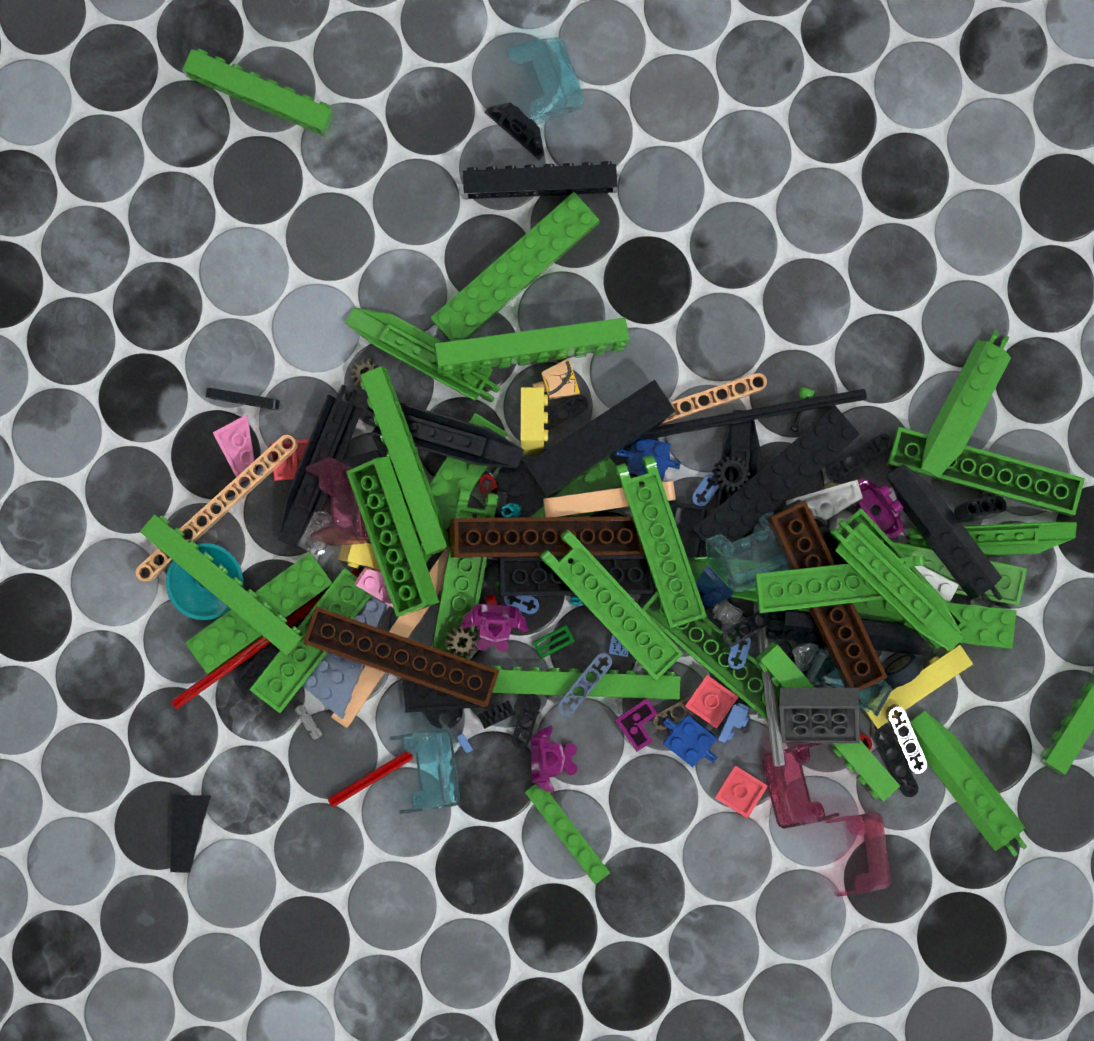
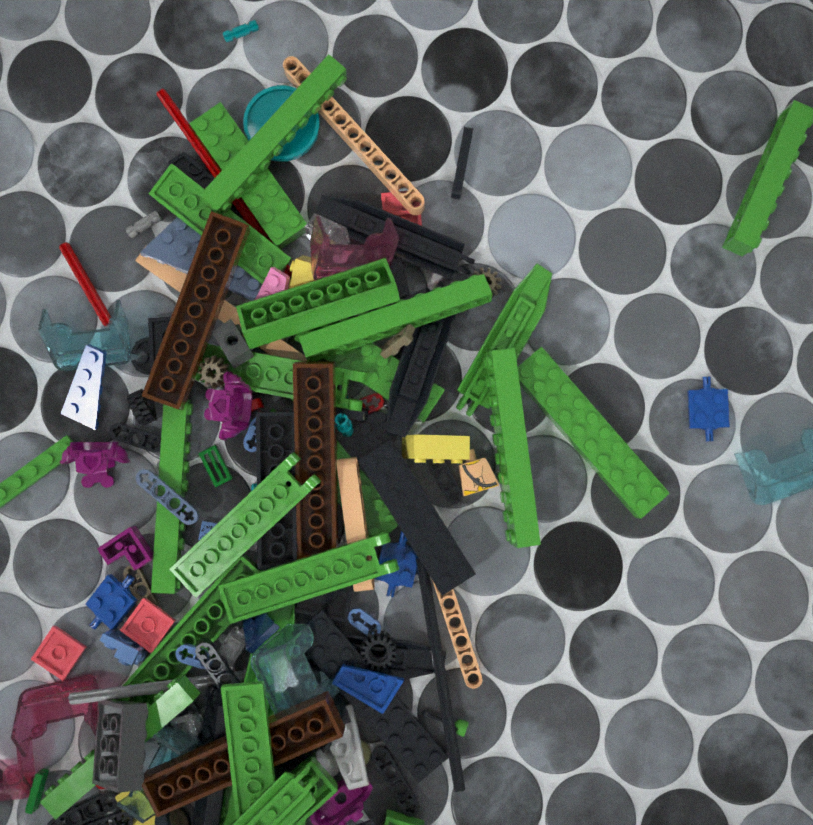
camera: 90 degrees right, 0 degrees up
(105, 627) = (240, 31): none -> teal axle
(186, 828) = (48, 107): black wing -> none
(236, 445) = (417, 157): bright pink wing -> none
(428, 458) = (395, 343): none -> dark tan plate
(443, 619) = (225, 335): none -> dark grey brick
(464, 743) = (116, 376): medium blue tile -> none
(484, 773) = (86, 388): none -> wing
(489, 150) = (708, 408): none -> blue plate
(518, 126) = (734, 439): black wing -> none
(539, 181) = (680, 459): black brick -> none
(765, 481) = (368, 686): none -> blue wing
(875, 808) = (36, 791): none -> green tile

